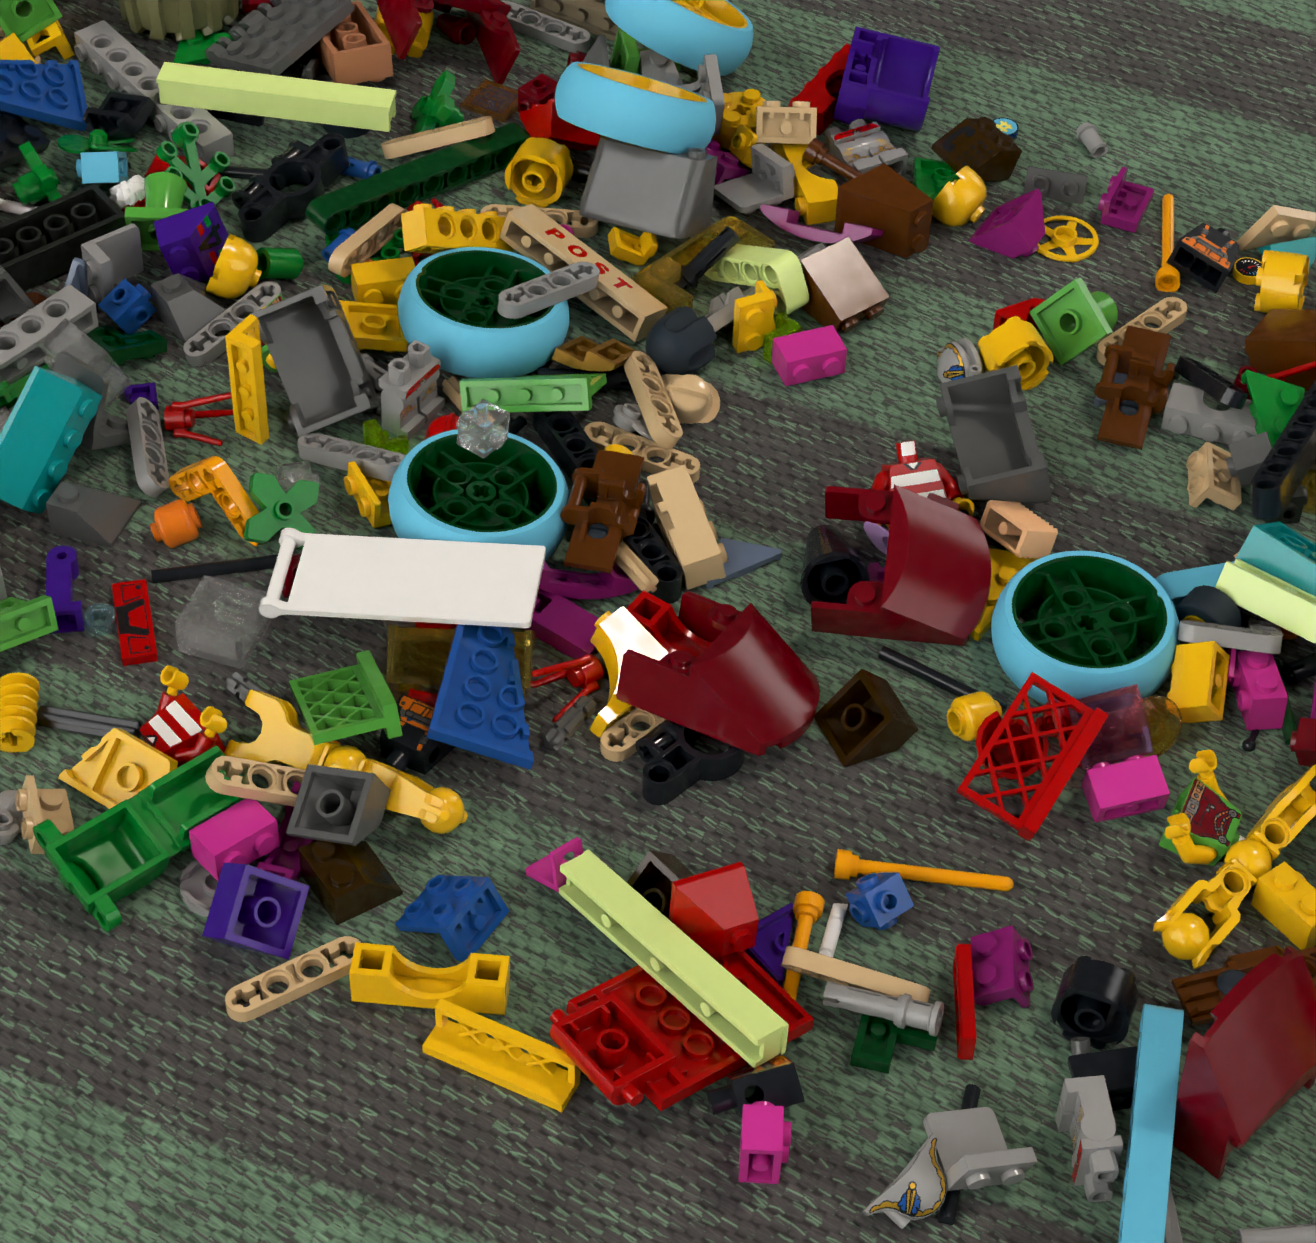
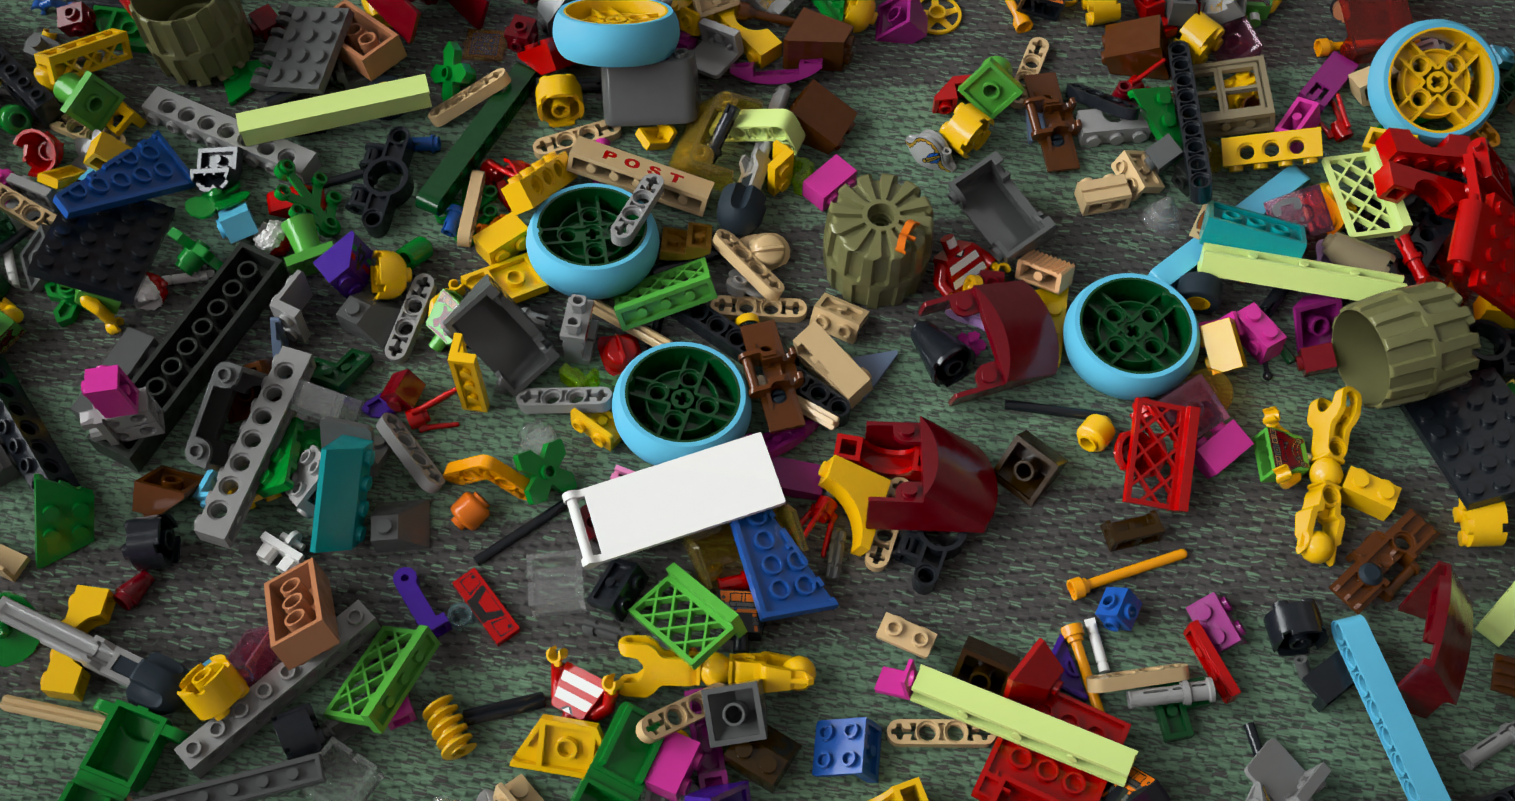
camera: 25 degrees left, 15 degrees up
(128, 306) = (325, 336): blue brick -> none
(177, 384) = (402, 390): none -> dark red brick
(293, 657) = (618, 588): none -> black bracket
(483, 428) = (662, 351): clear brick -> none
(572, 949) = (941, 738): none -> tan beam
(596, 824) = (906, 635): none -> tan bracket
(730, 493) = (839, 317): none -> tan bracket
(817, 415) = (863, 239): none -> olive wheel
(838, 393) = (905, 235): none -> orange piece
(953, 837) = (1132, 531): none -> dark brown hinge
(1089, 1118) = (1351, 733): light grey hips -> none
(1152, 482) = (1103, 194): none -> tan brick
(1219, 531) = (1162, 216): none -> clear hat
(1257, 637) = (1240, 300): light grey beam -> none

